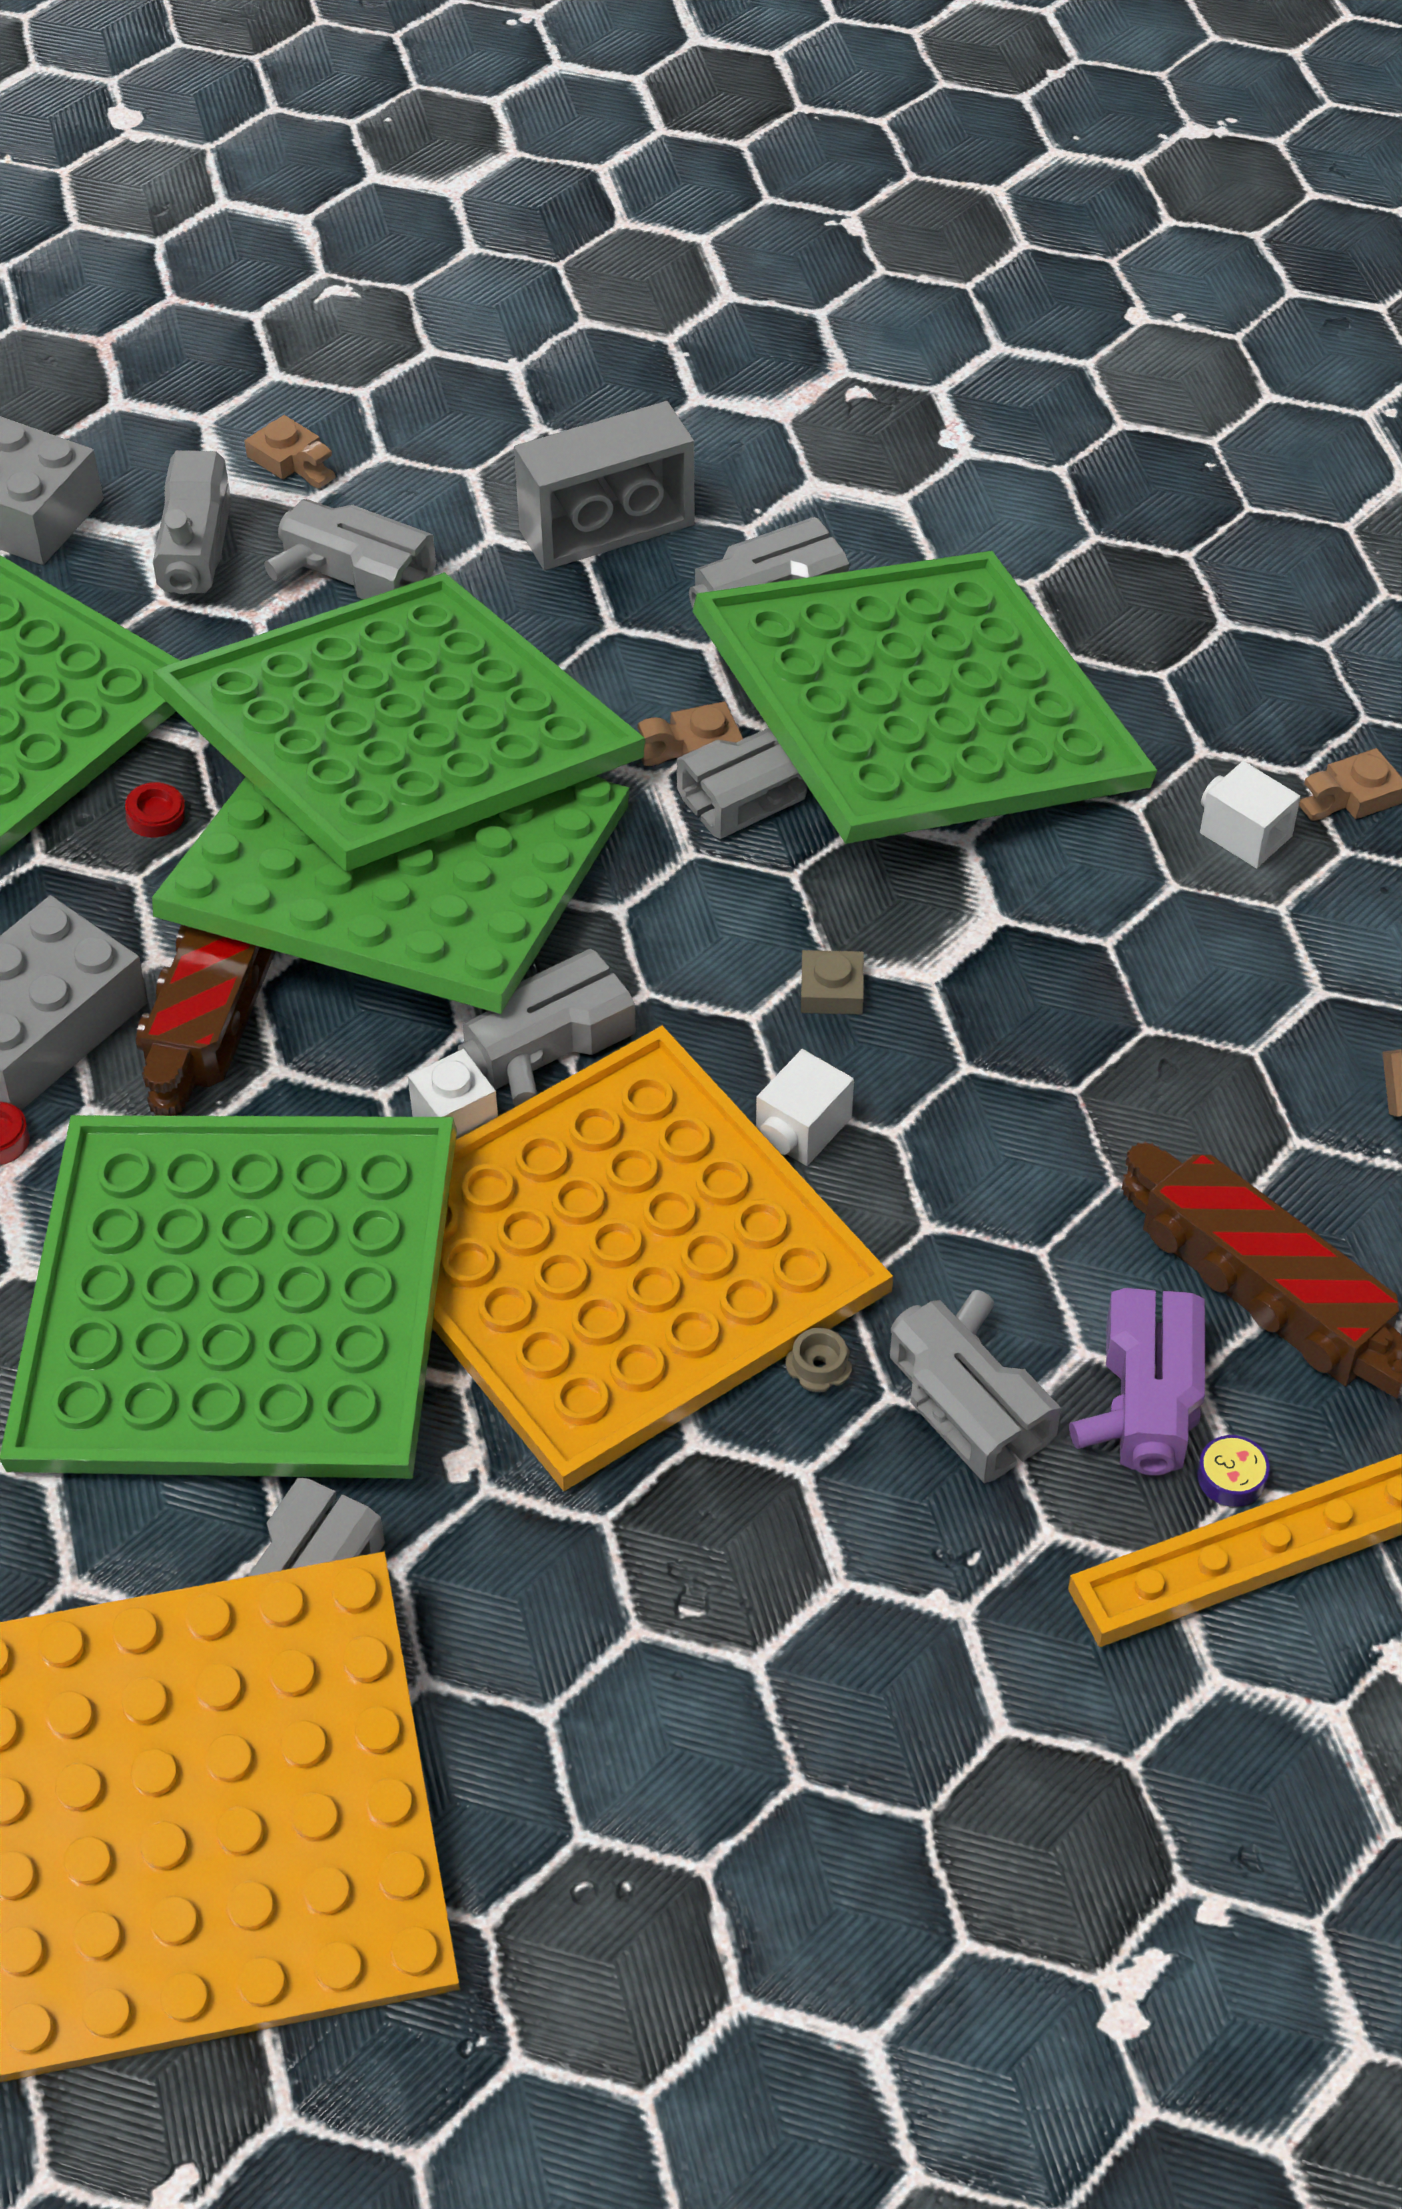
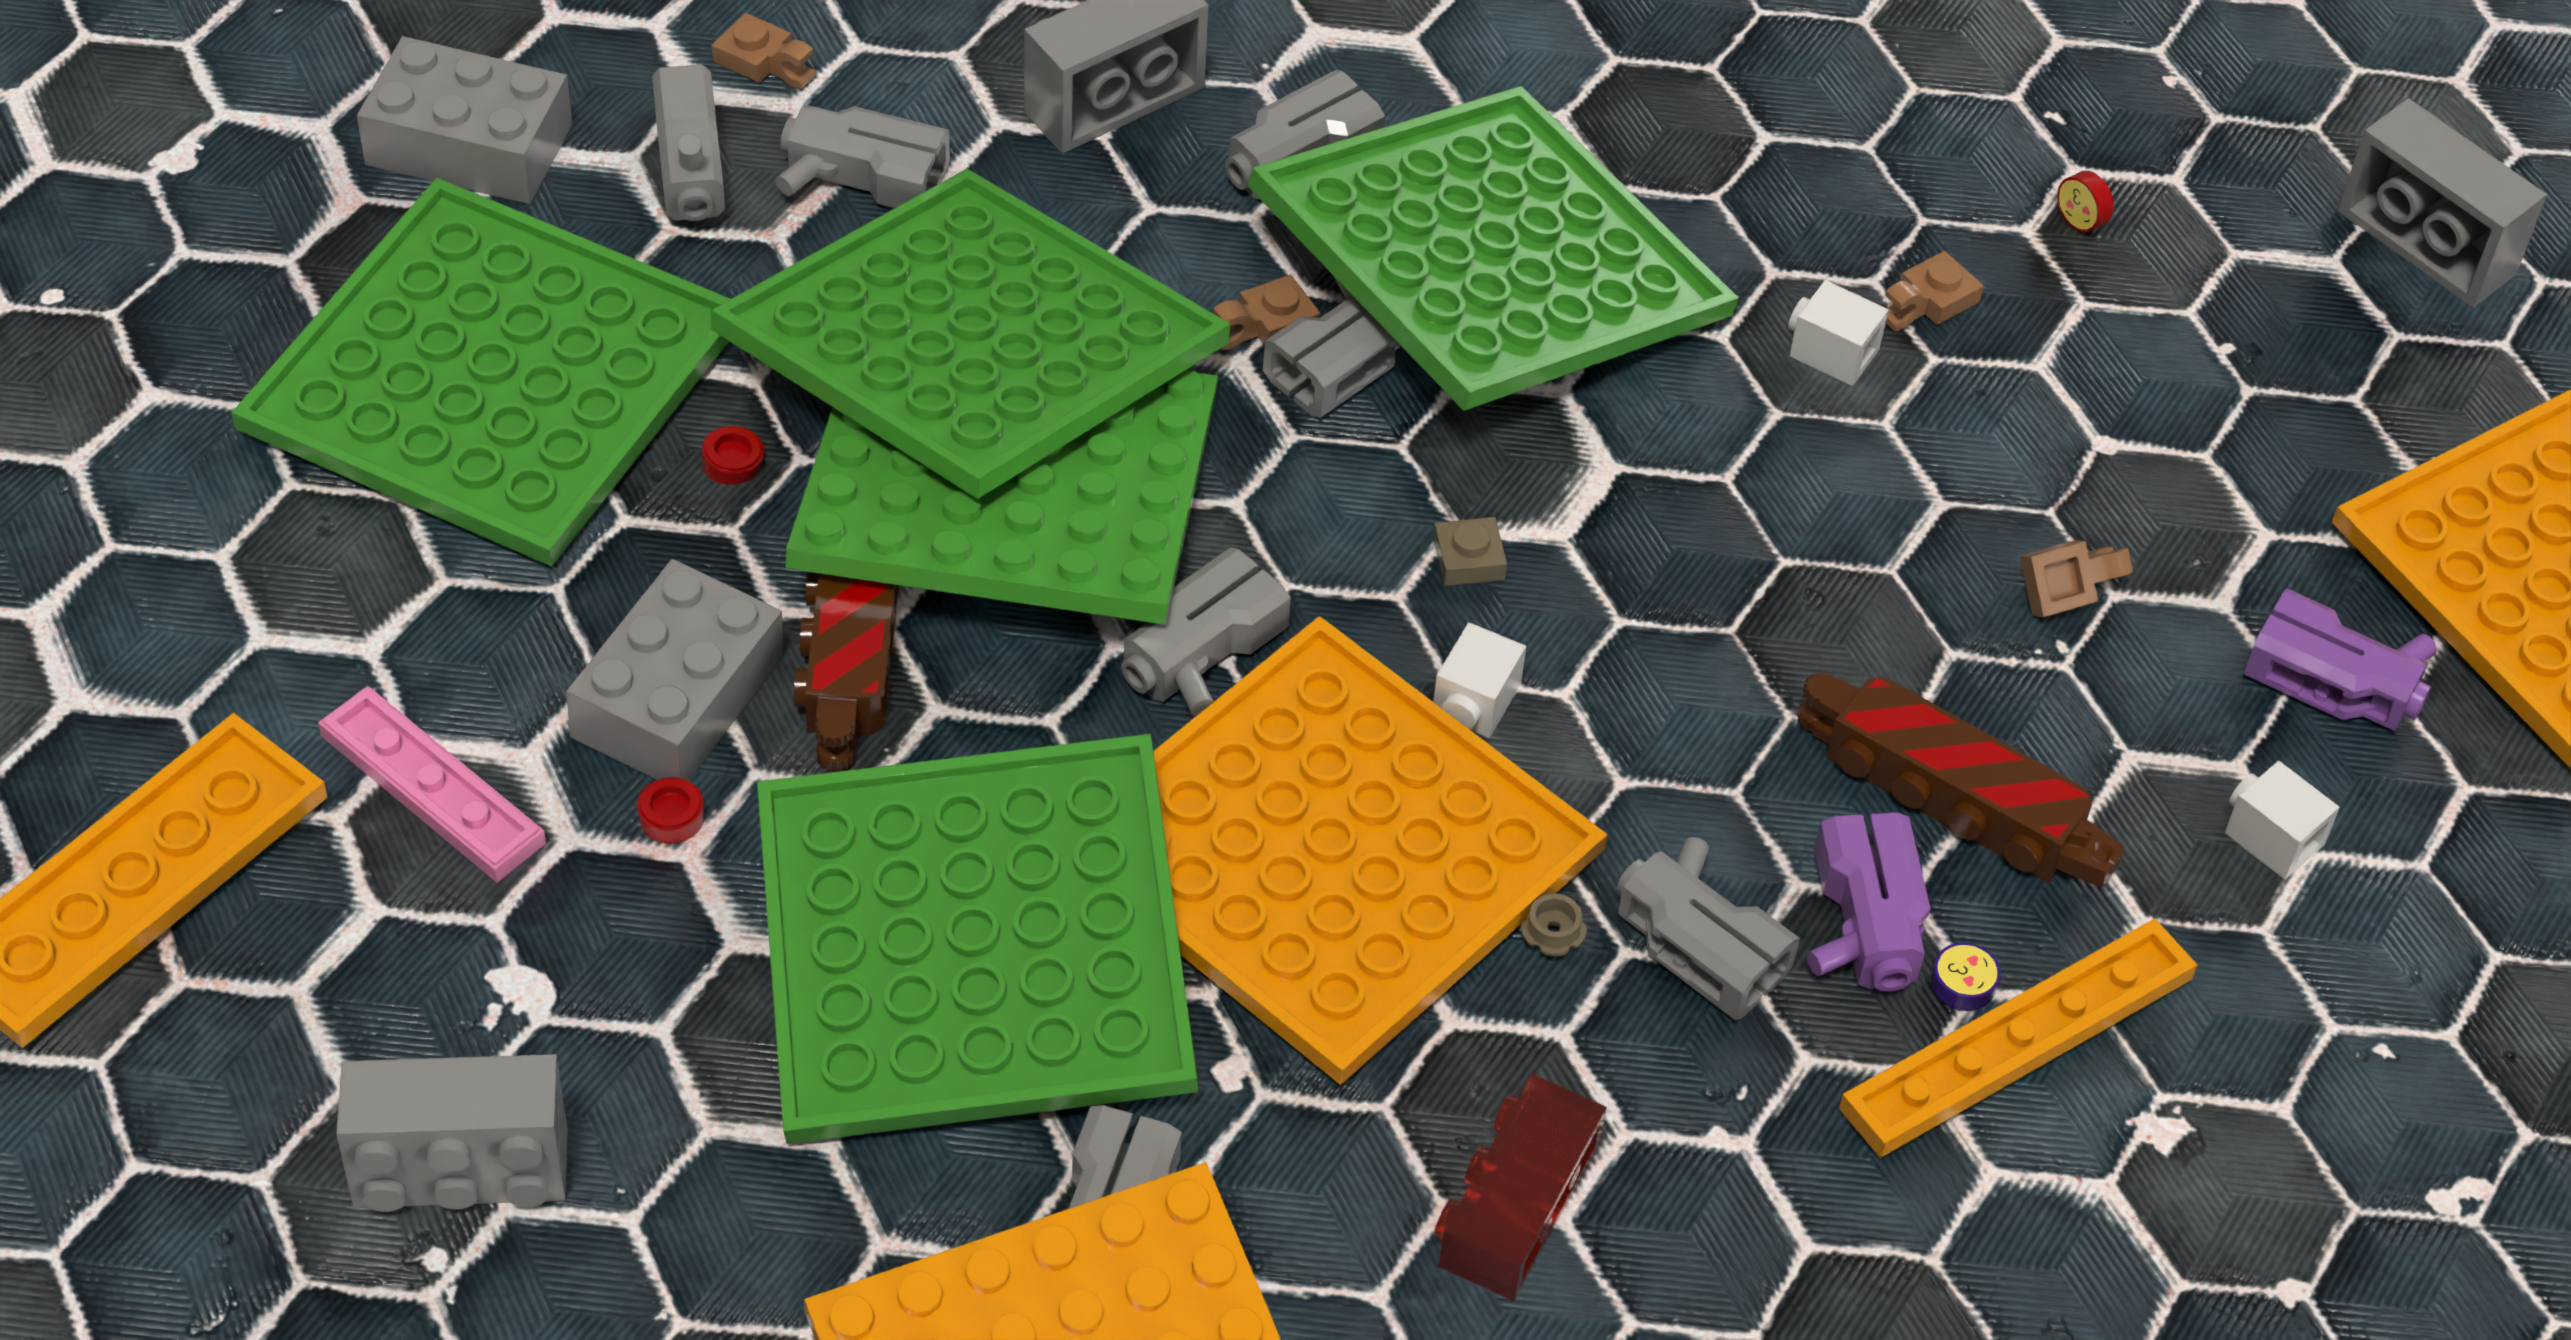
camera: 15 degrees left, 0 degrees up
(454, 1090) = (1135, 707): white brick -> none
(713, 1622) = (1519, 1186): none -> clear red brick

